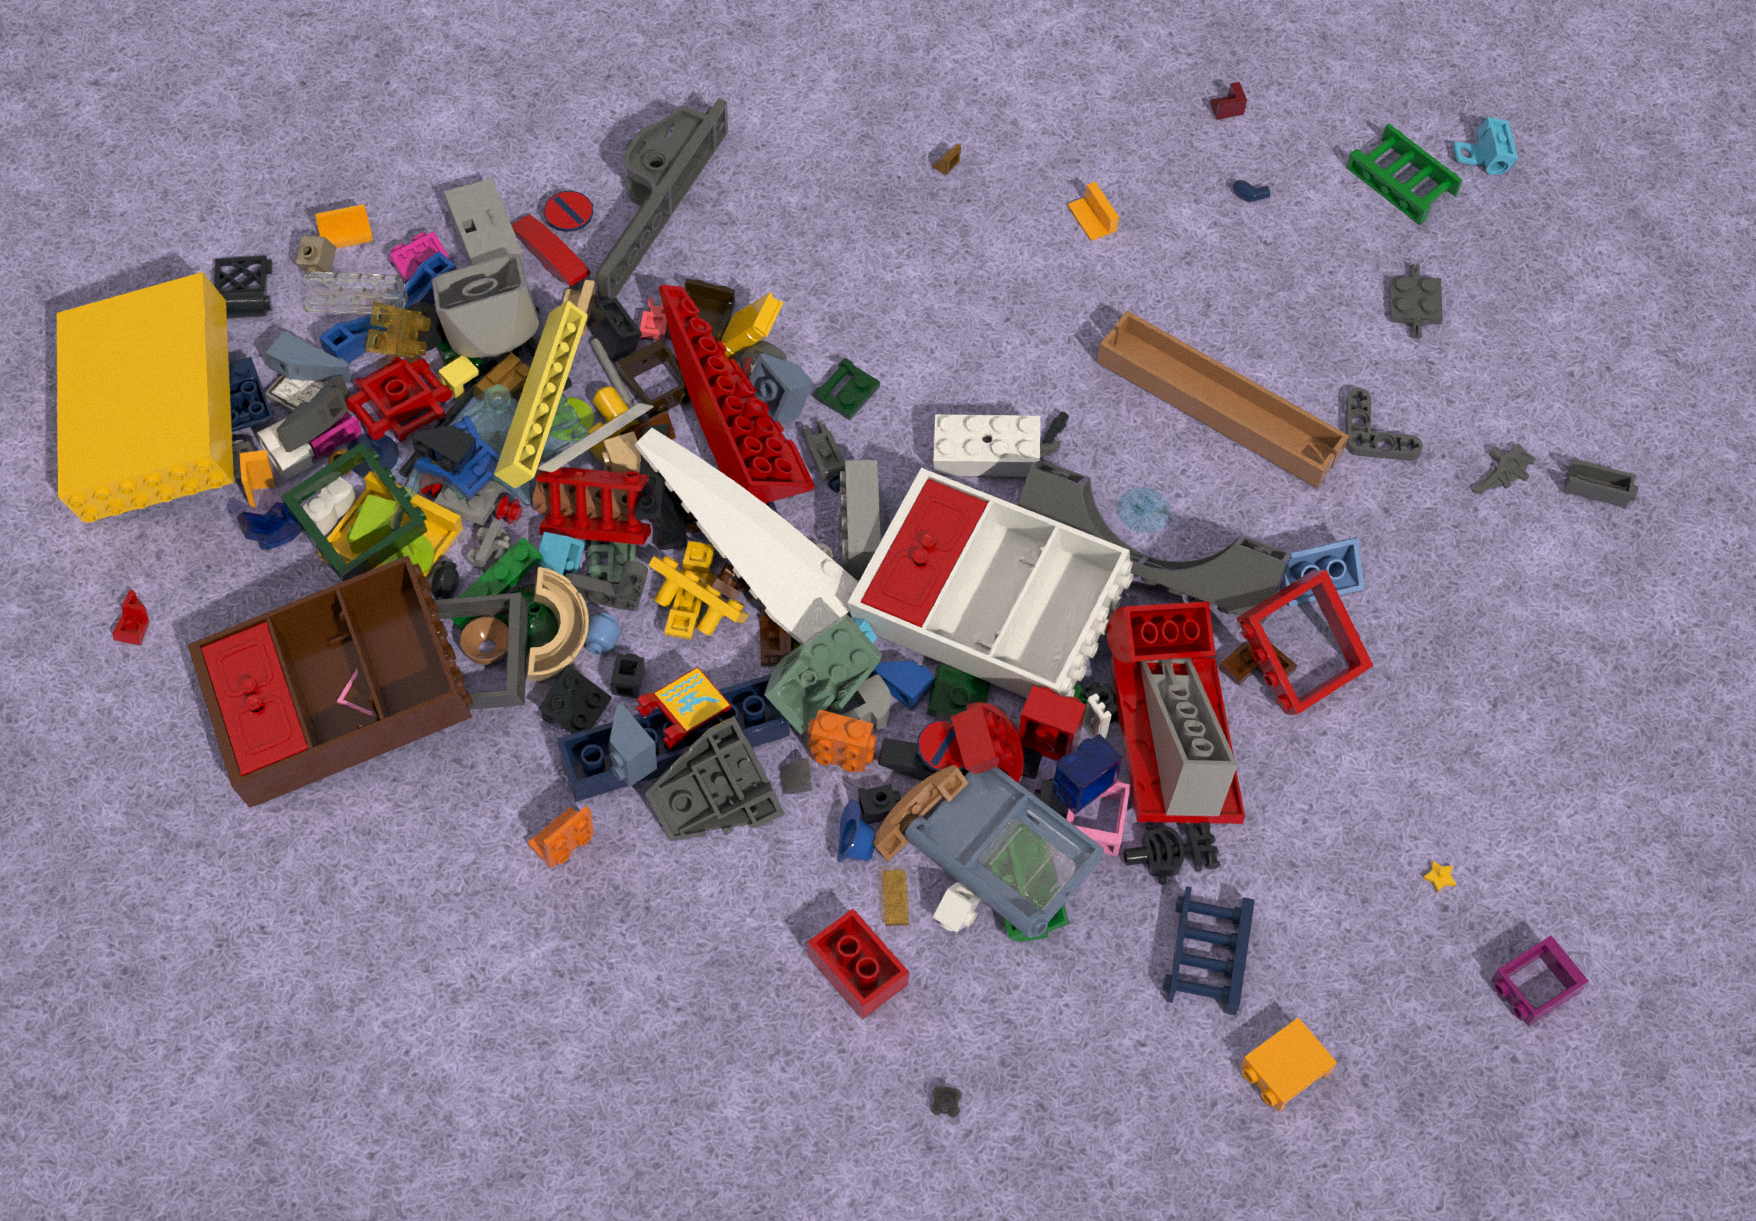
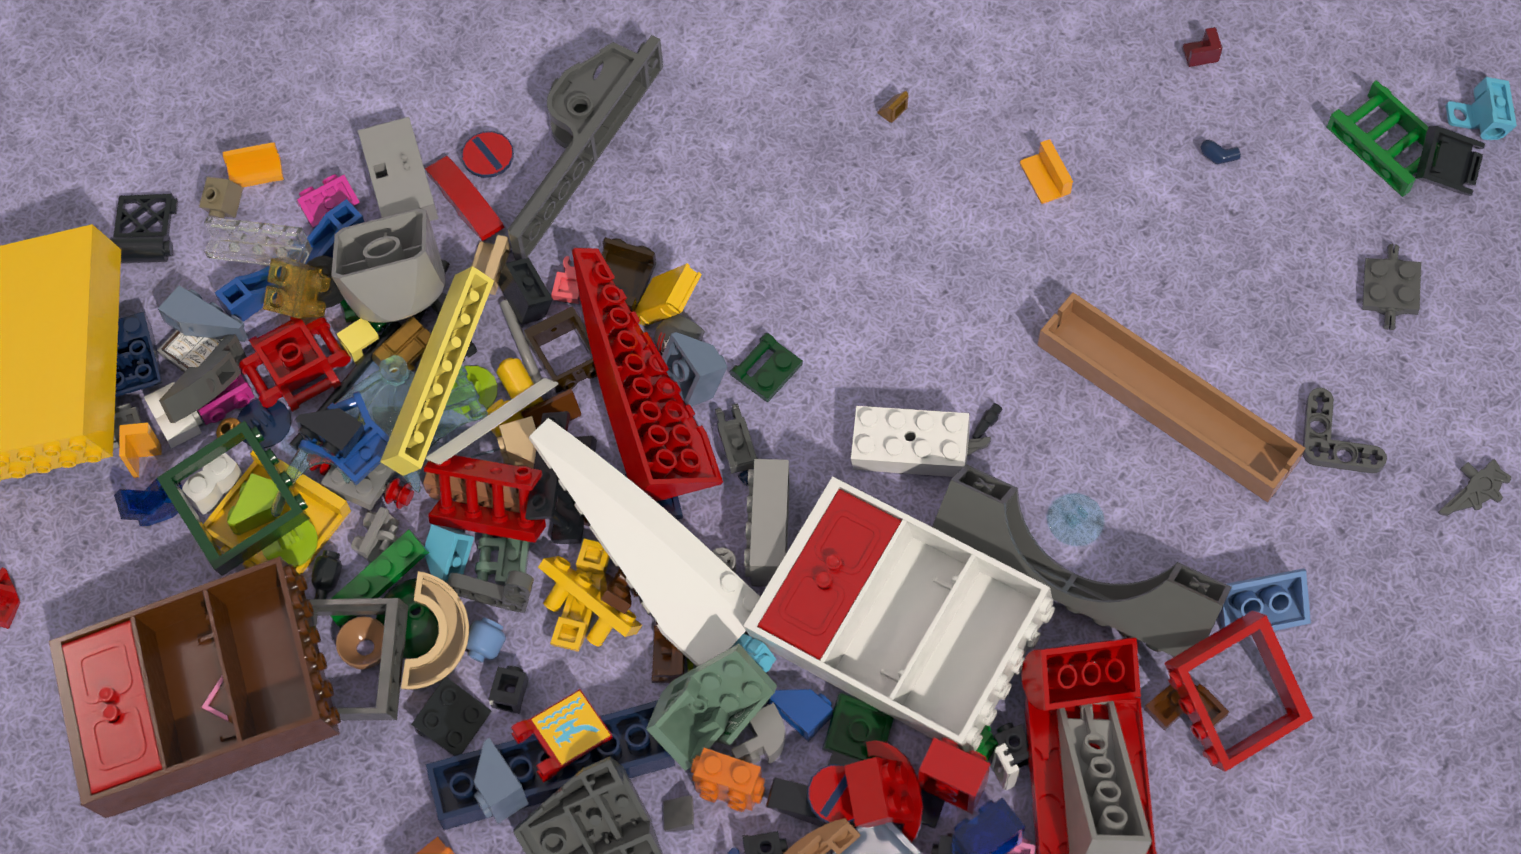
camera: 10 degrees right, 5 degrees up
(1463, 192) = (1453, 160): none -> black container

